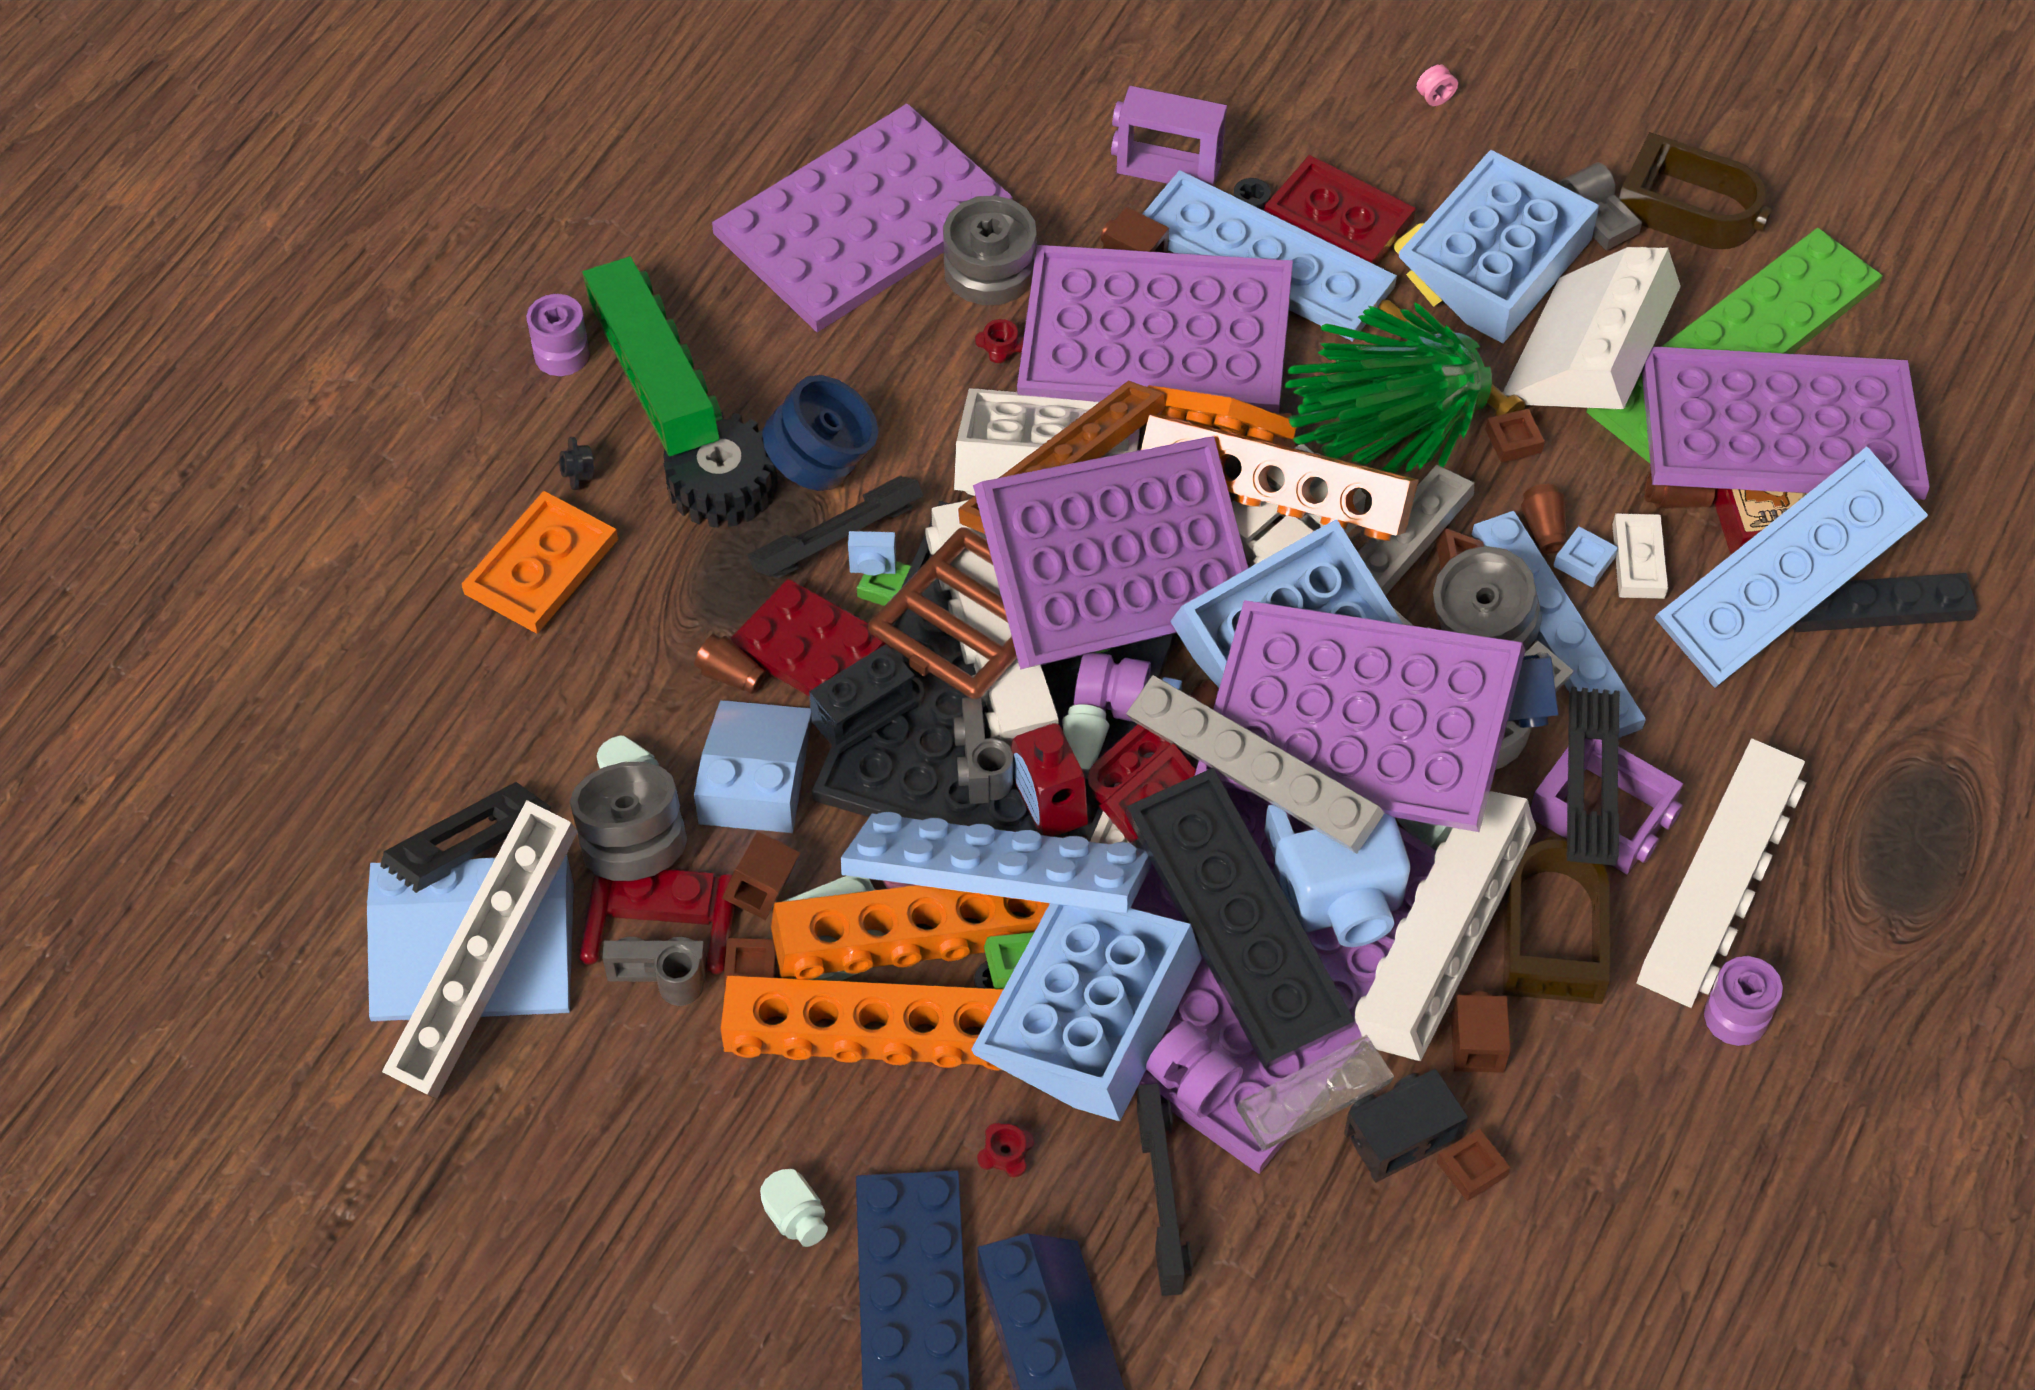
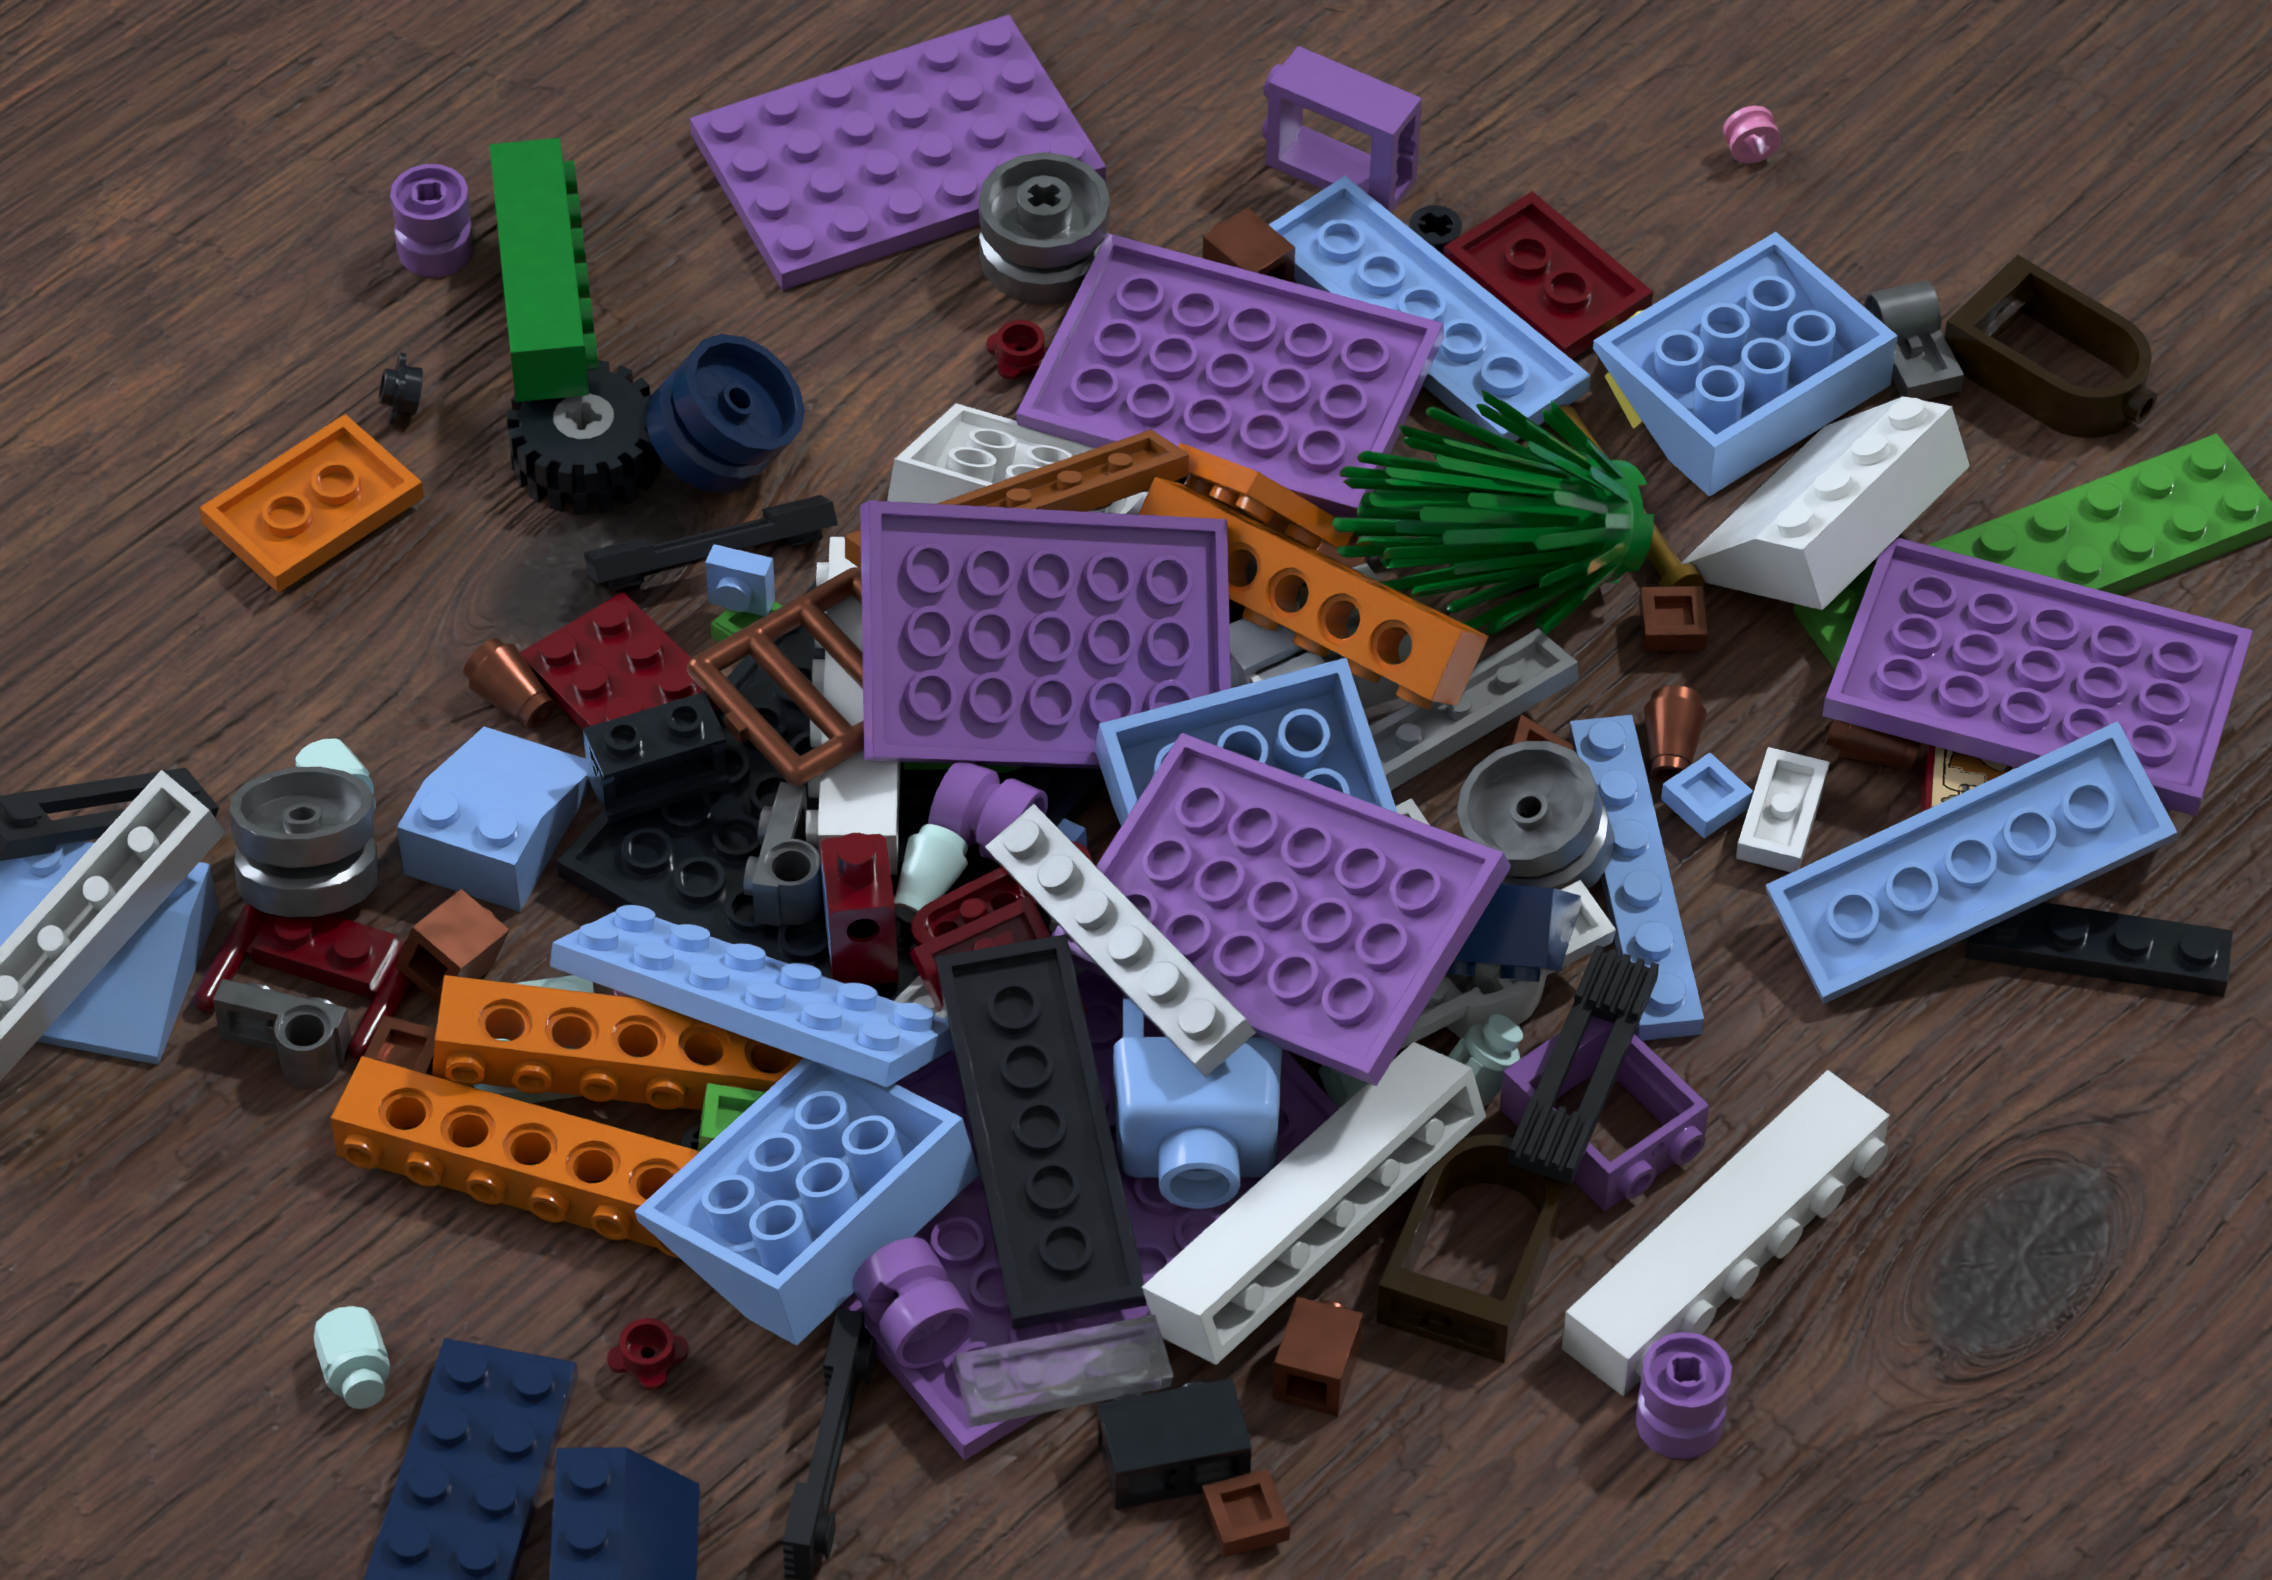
camera: 15 degrees right, 5 degrees down
(1518, 776) = (1489, 1051): none -> light aqua arm

